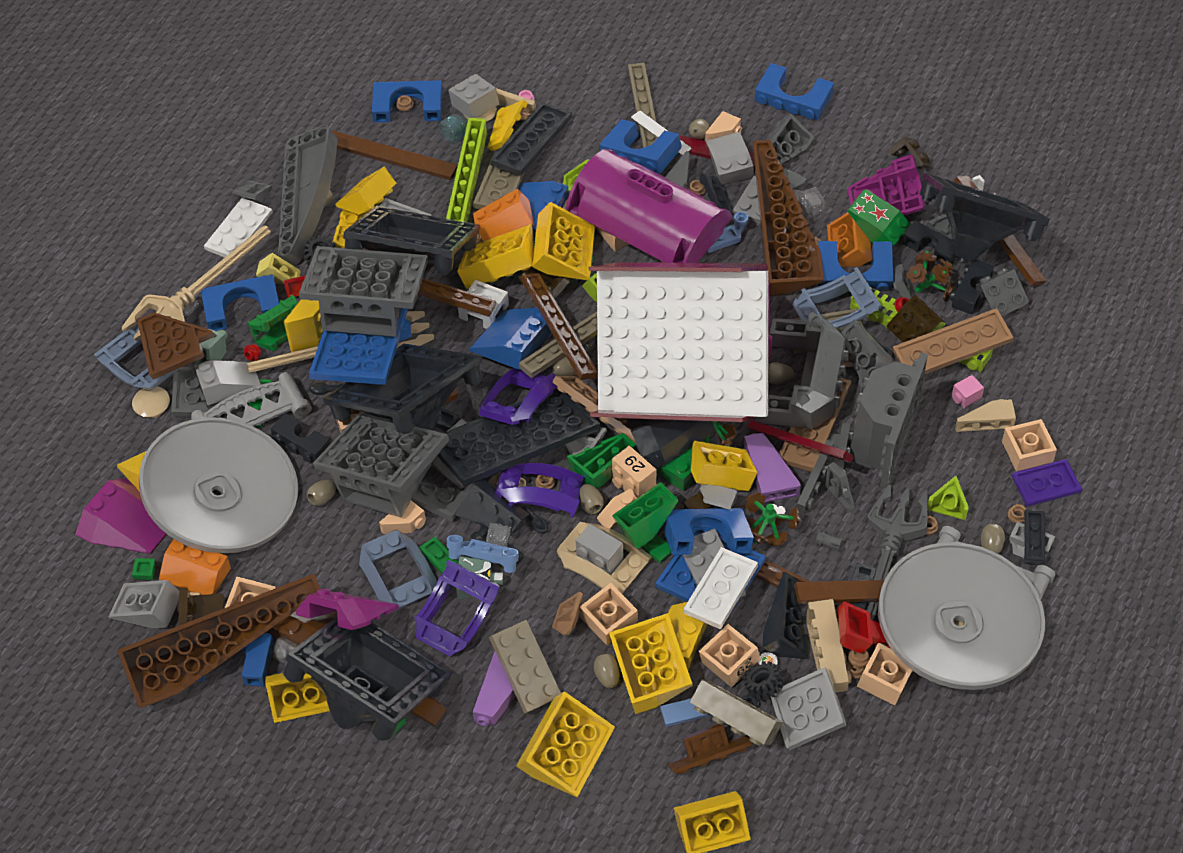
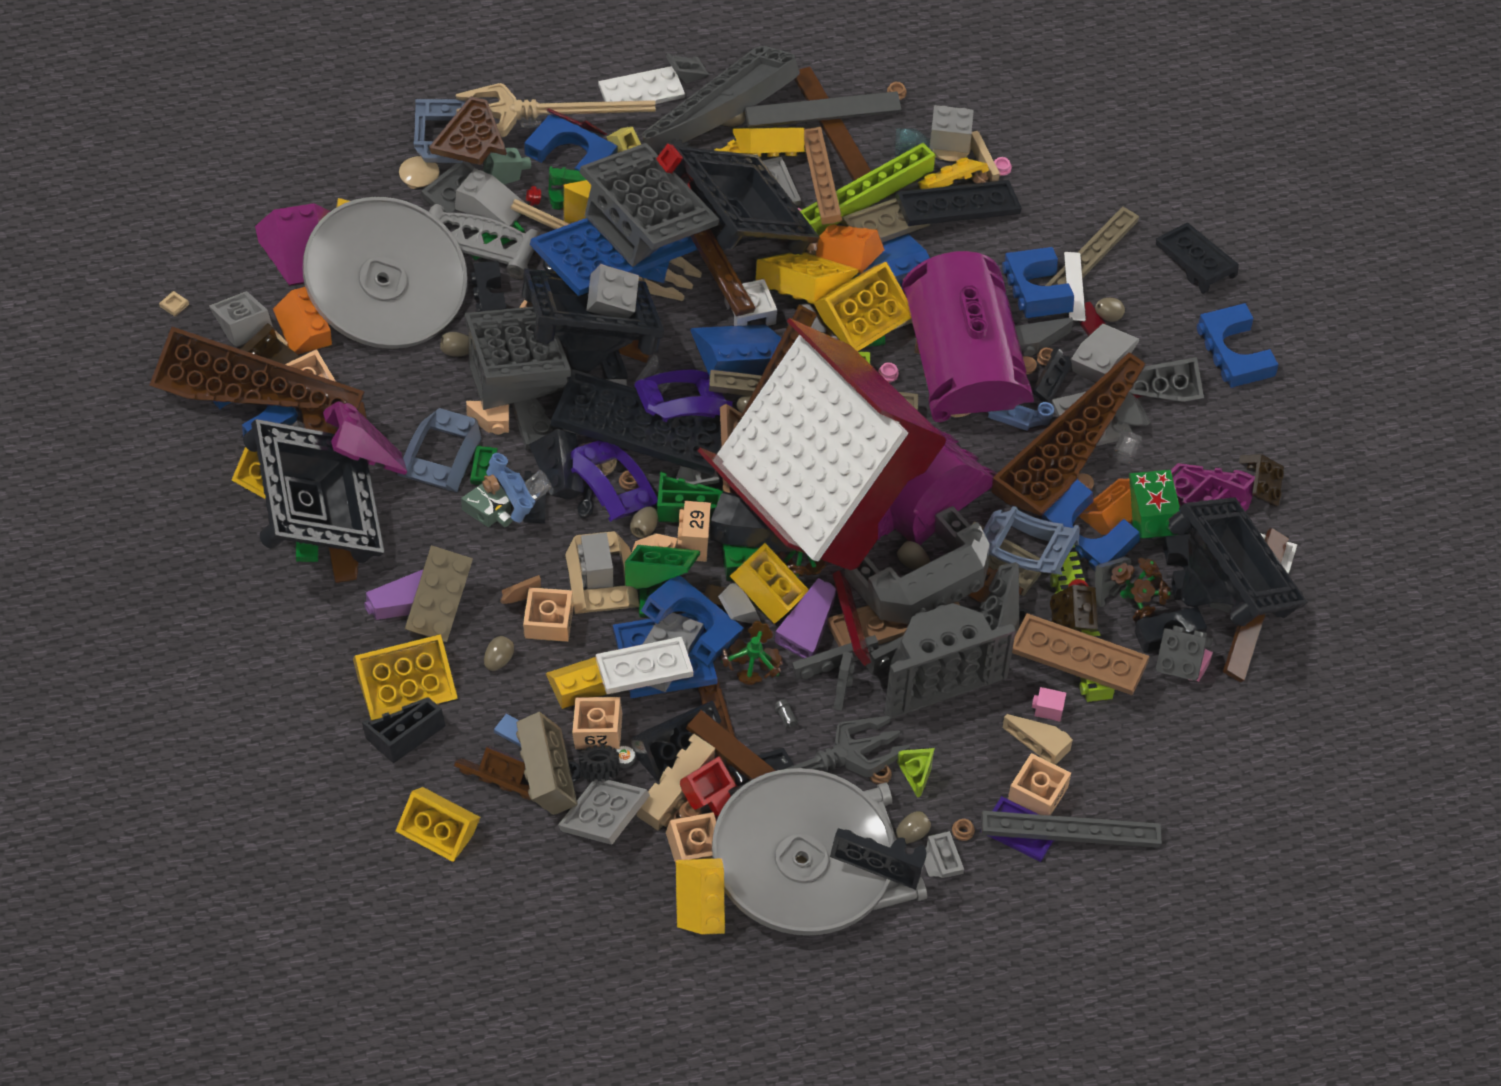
camera: 40 degrees right, 0 degrees up
(80, 637) = (174, 303): none -> tan tile
(144, 569) = (270, 292): green plate -> none
(234, 278) = (585, 125): none -> dark red piece
(350, 242) = (669, 158): none -> red plate
(376, 149) = (822, 109): none -> dark grey tile
(387, 93) = (889, 70): blue arch -> none
(408, 362) = (612, 292): none -> light grey brick
(436, 188) = (821, 176): none -> medium nougat plate
(467, 581) = (472, 500): dark purple wedge -> none
(468, 561) = (491, 484): none -> medium nougat plate
(612, 783) = (404, 730): none -> black wedge
(651, 662) = (529, 672): yellow slope -> none
(707, 58) = (1198, 256): none -> black hinge
(723, 125) = (1133, 323): light nougat slope -> none
(941, 703) = (700, 895): none -> yellow slope
(1022, 573) = (879, 859): none -> black hinge
(1034, 537) = (948, 852): black tile -> none
(1077, 455) = (1071, 829): none -> dark grey plate

